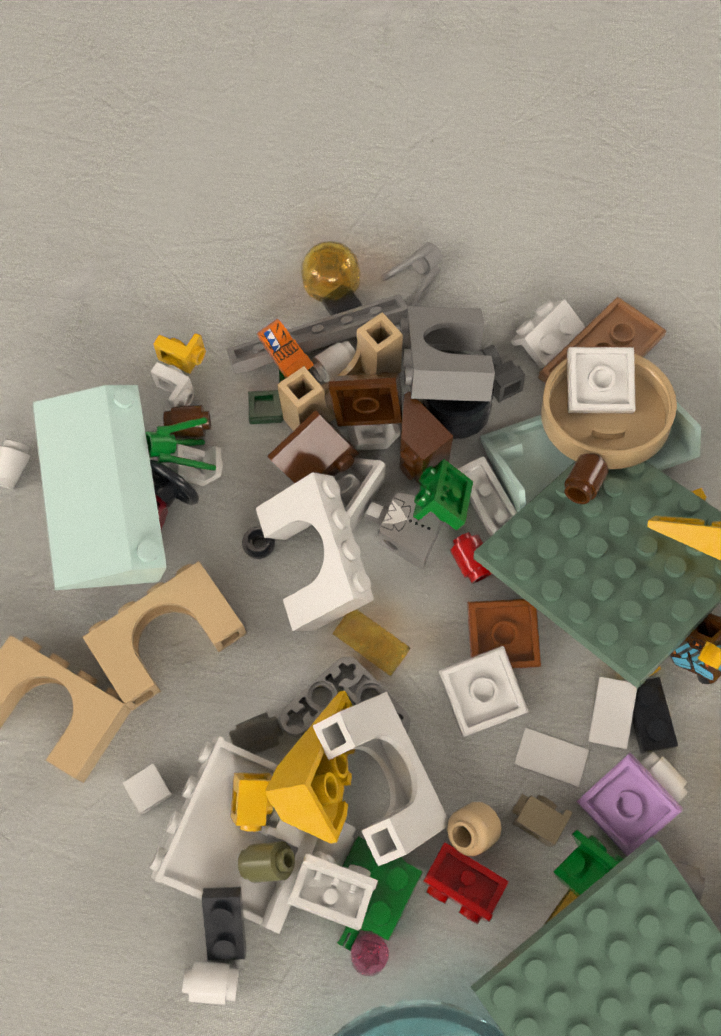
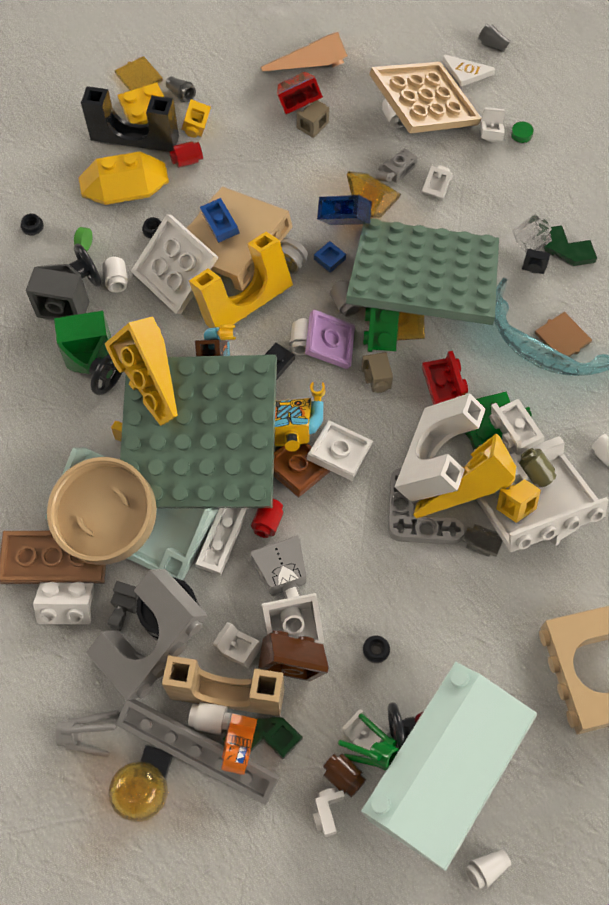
camera: 135 degrees left, 5 degrees down
(117, 640) = (518, 669): tan arch -> none
(147, 789) = (567, 573): white tile -> none
(178, 354) = (301, 839): yellow bracket -> none
(224, 923) = (583, 466): black plate -> none
(342, 579) = (328, 615): white arch -> none
(367, 399) = (224, 654): reddish brown slope -> none
(369, 955) = (521, 392): clear pink tile -> none
(371, 641) = (371, 529): clear yellow slope -> none
(422, 439) = (224, 602): reddish brown slope -> none
(444, 493) = (250, 554): green bracket -> none
(474, 828) = (416, 394): tan head -> none
(551, 757) = (339, 397): white sticker -> none
(555, 671) = (298, 419): none -> torso
(585, 478) = (168, 478): reddish brown brick -> none
(601, 380) = (85, 527): white tile -> none
(613, 713) = (291, 382): white sticker -> none

